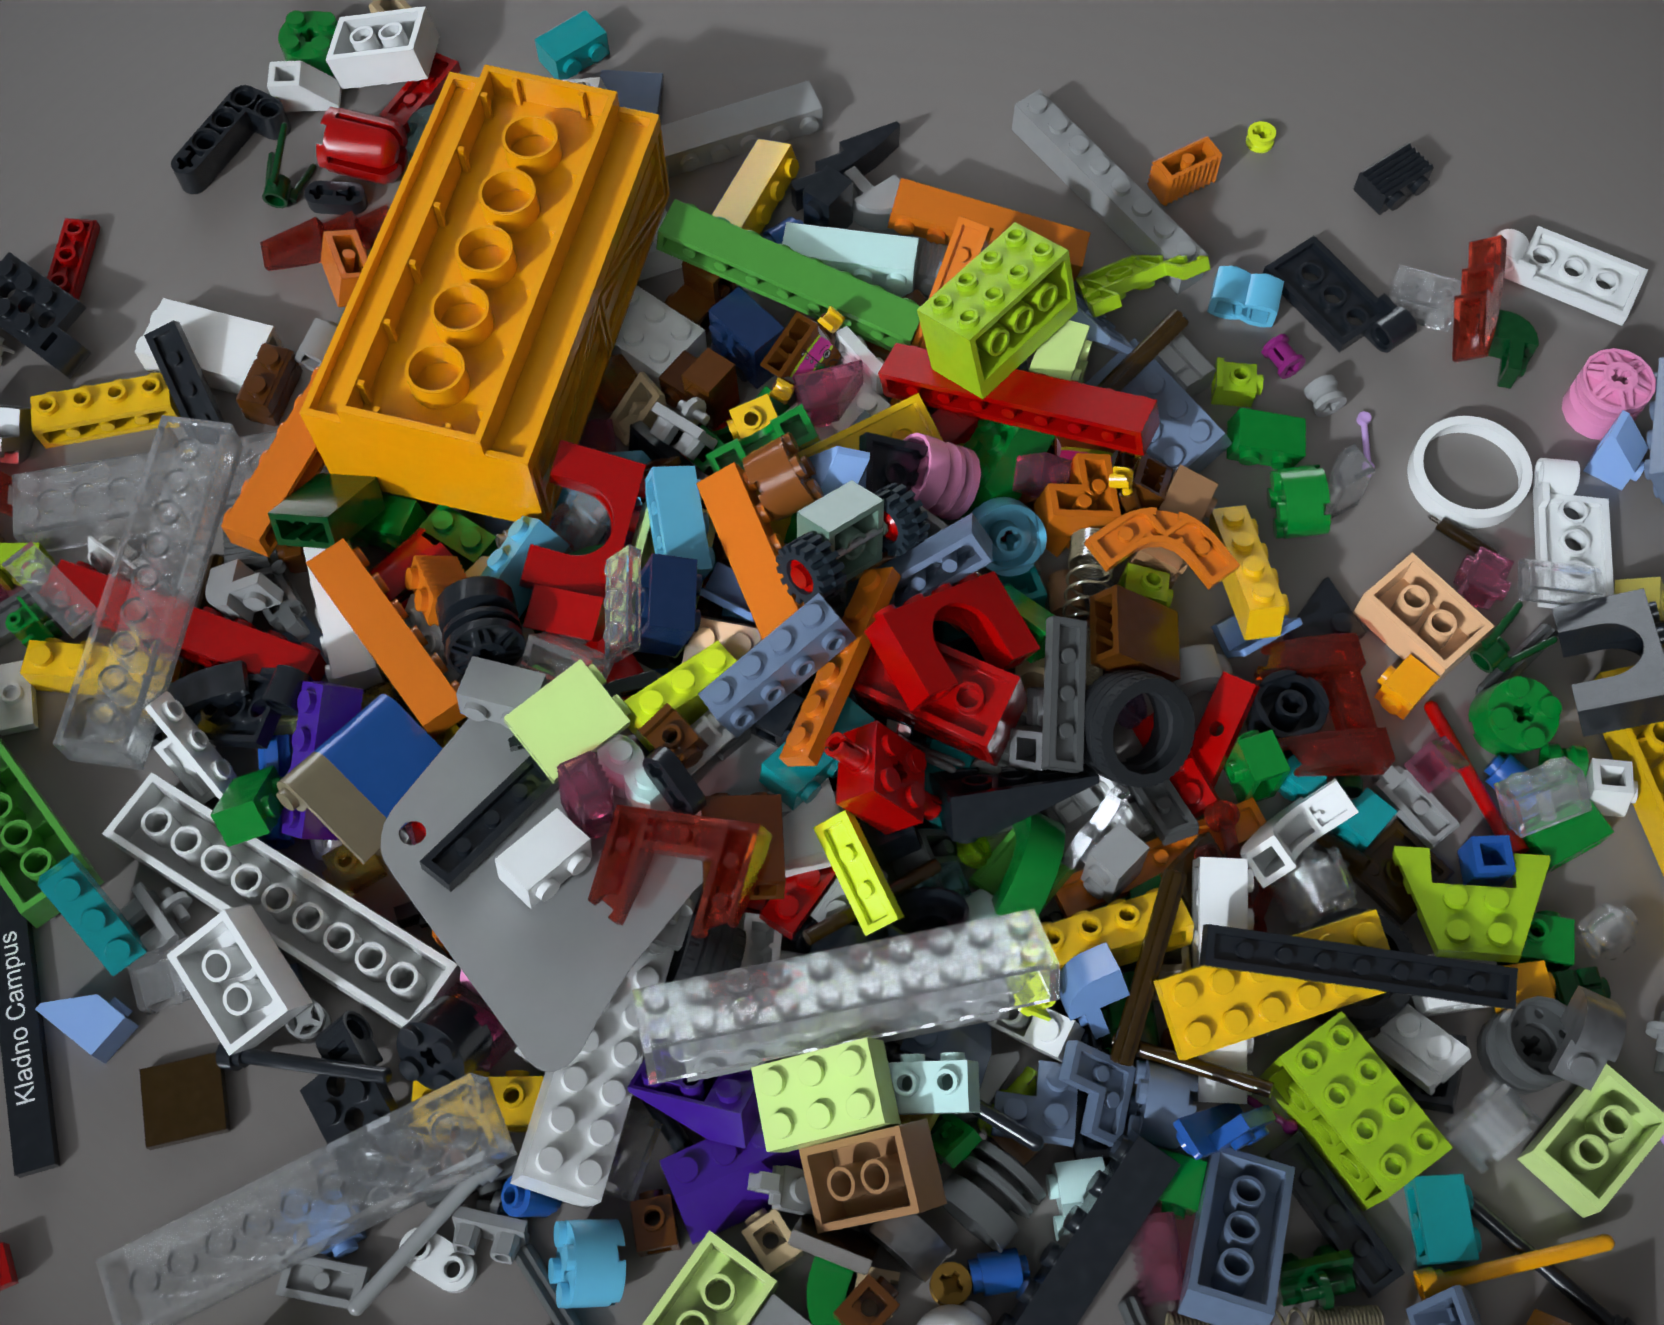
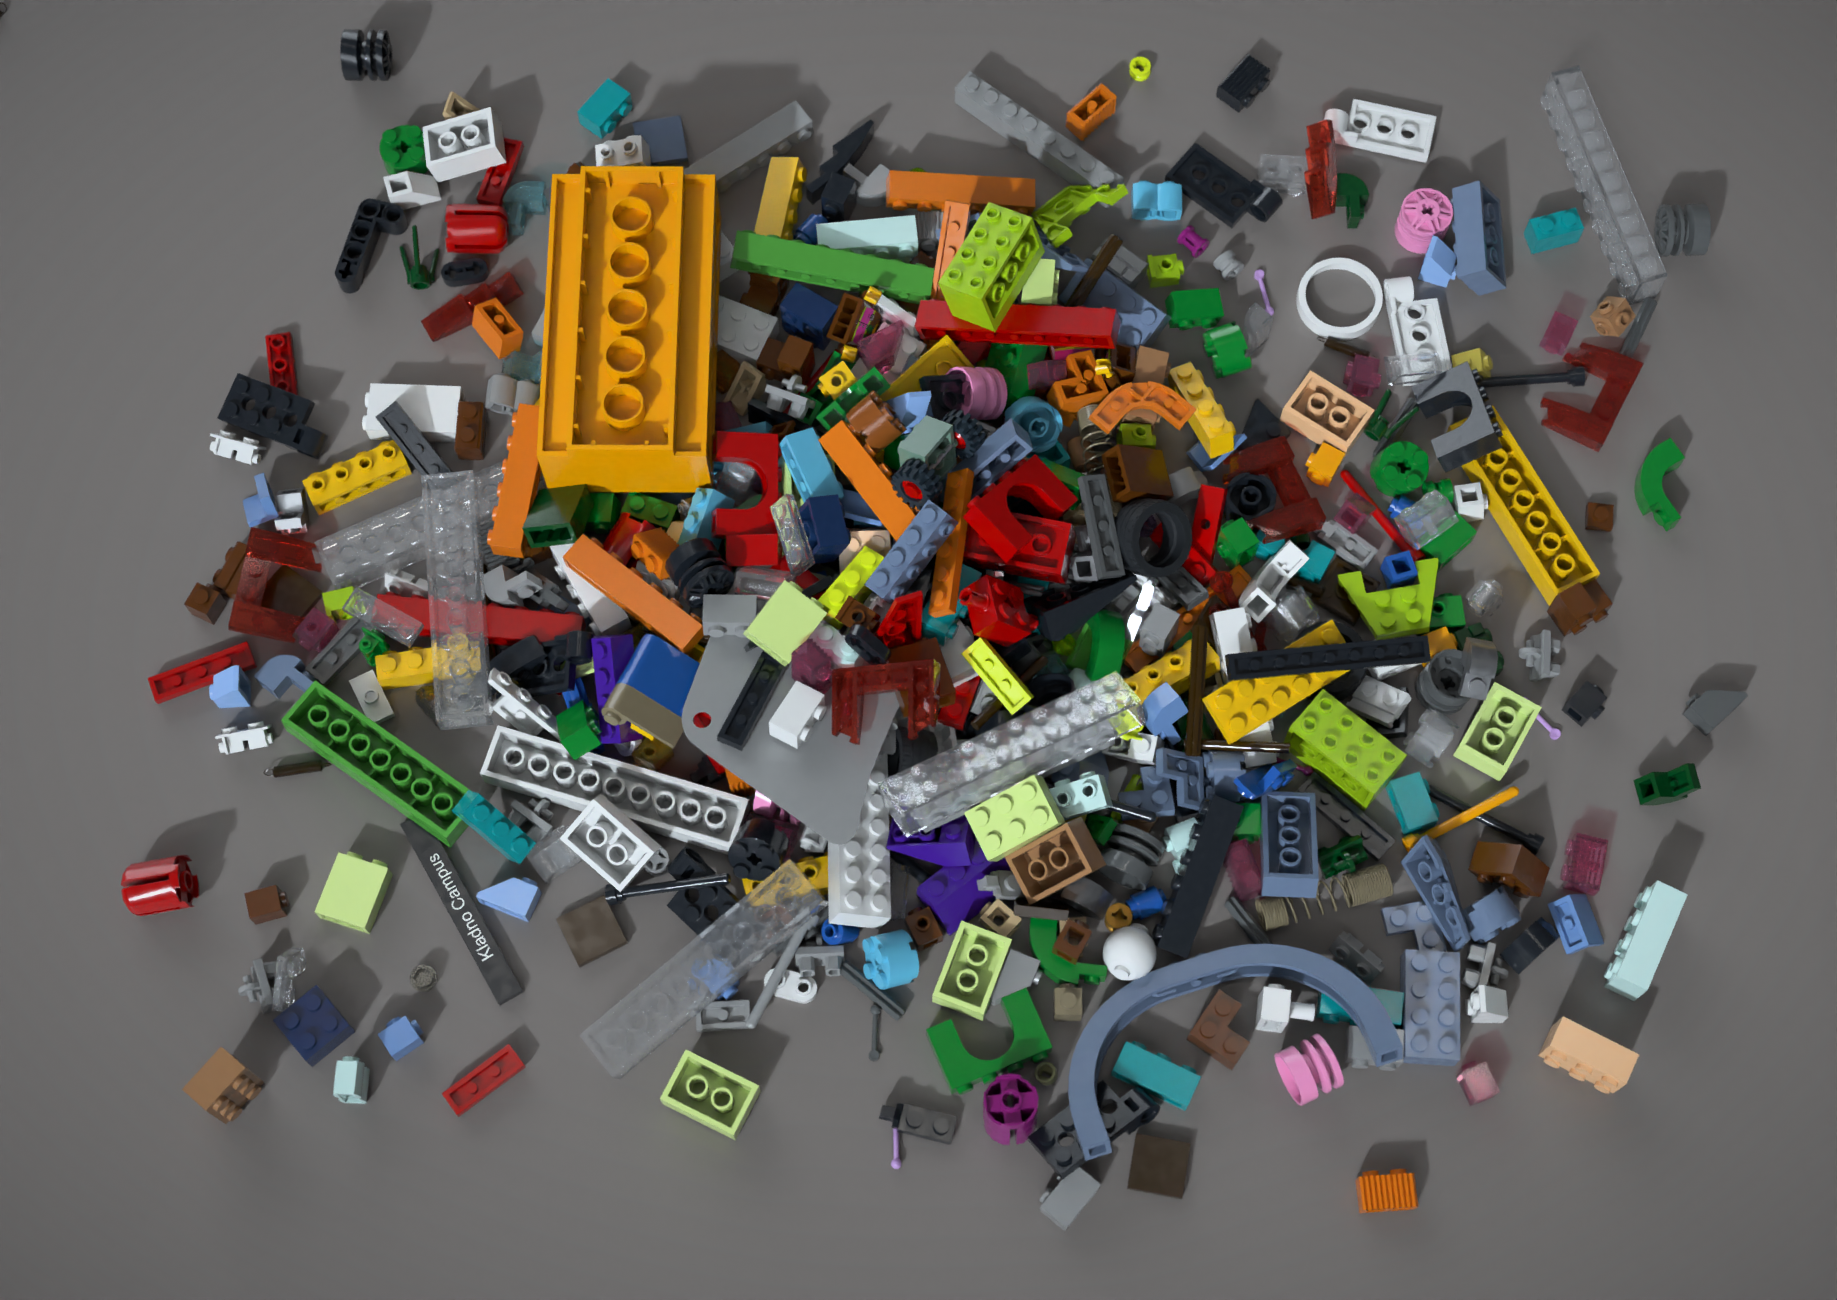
camera: 15 degrees left, 5 degrees up
(731, 758) = (902, 621): none -> red wedge

